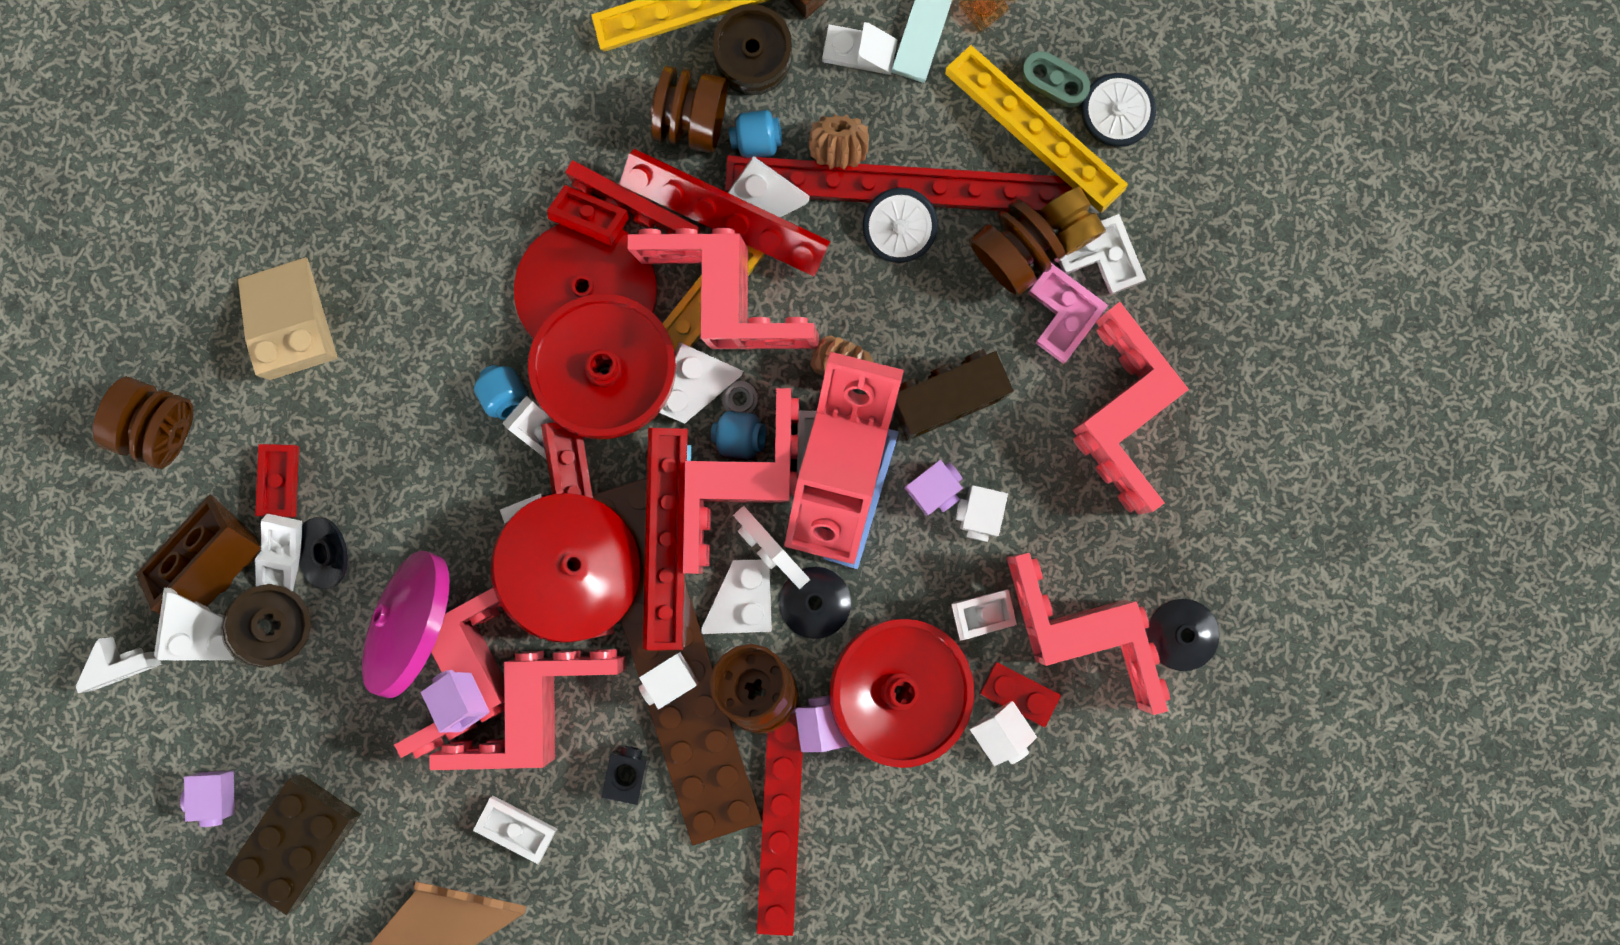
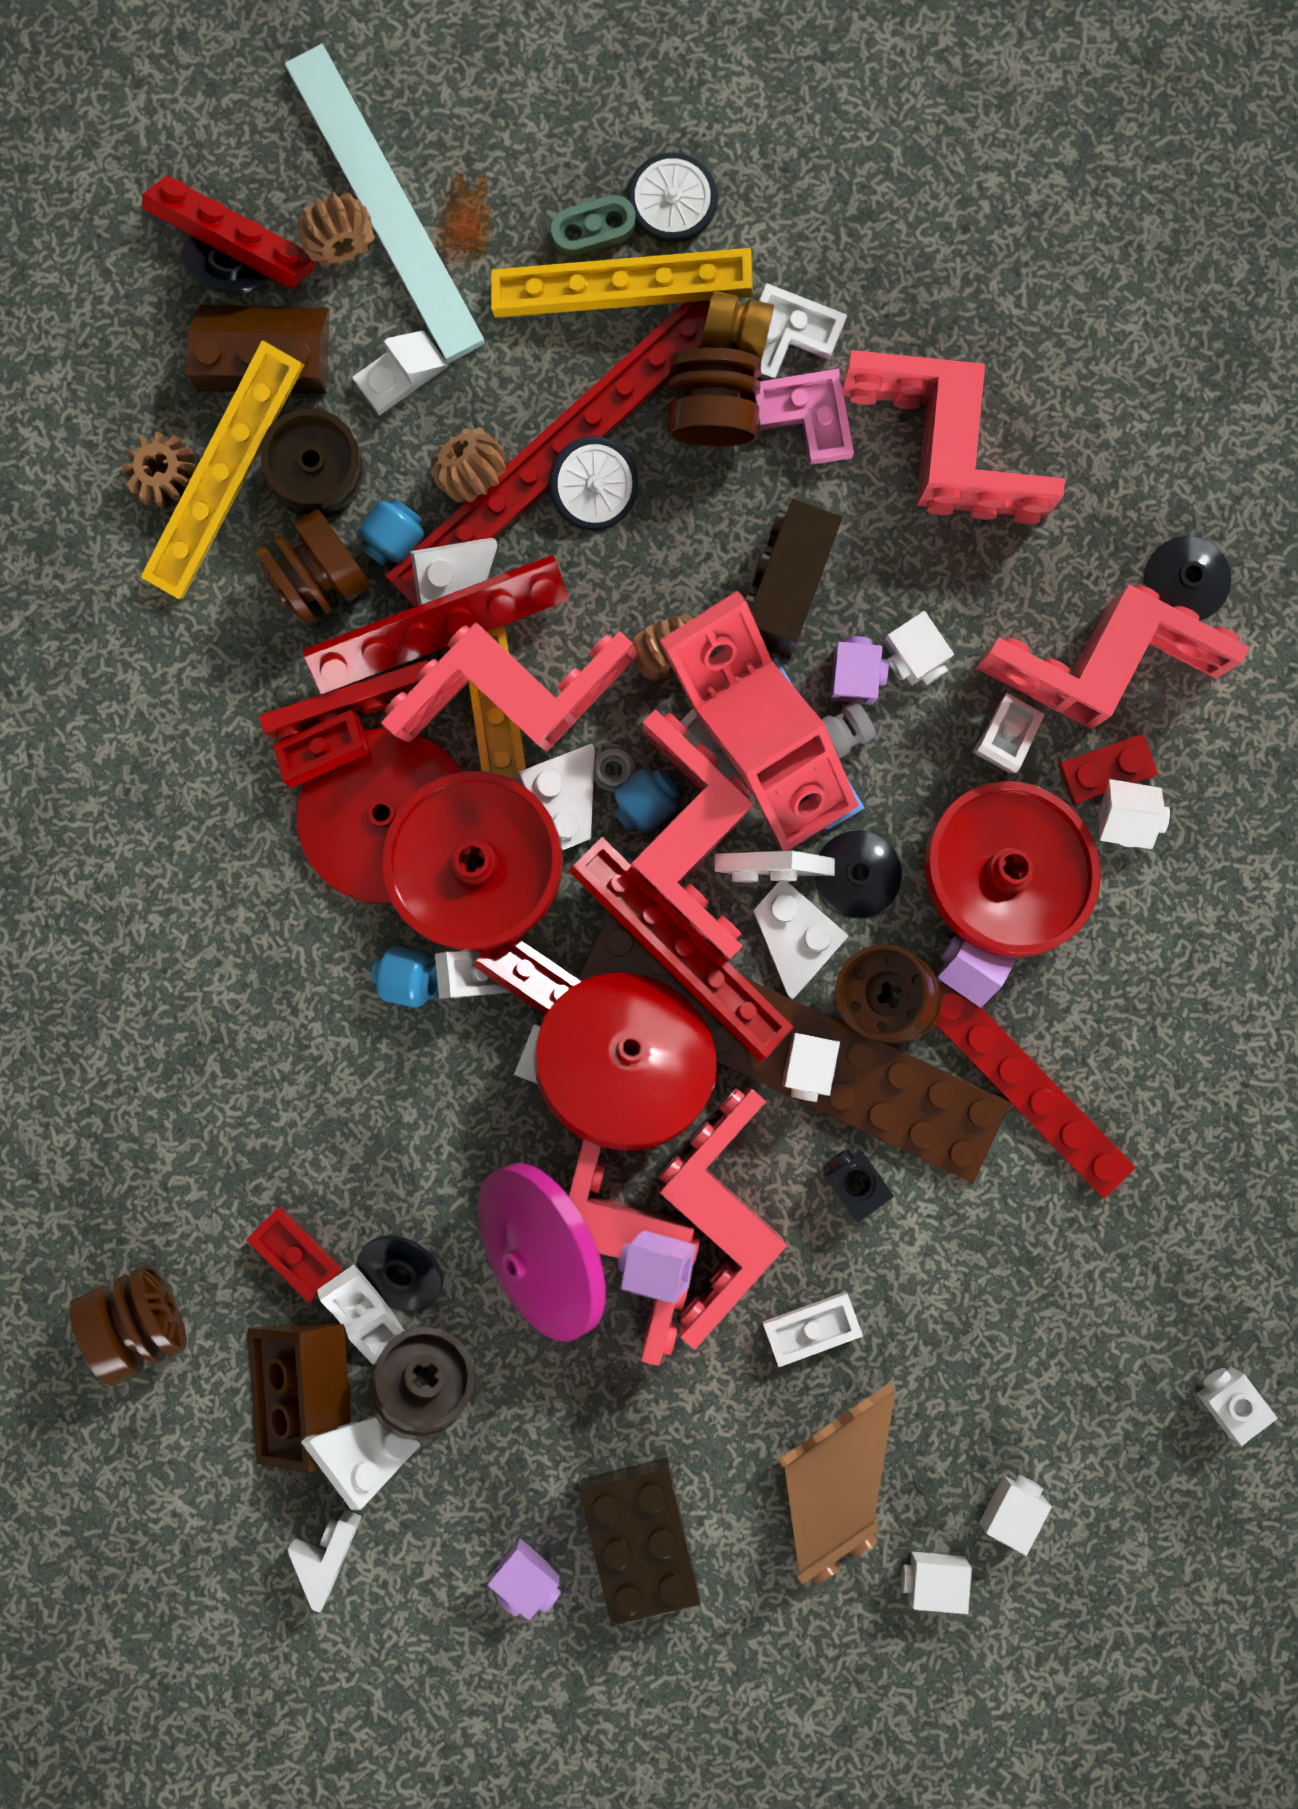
camera: 50 degrees left, 0 degrees up
(284, 320) = (153, 1112): tan slope -> none
(885, 512) = (849, 728): none -> light grey wheel

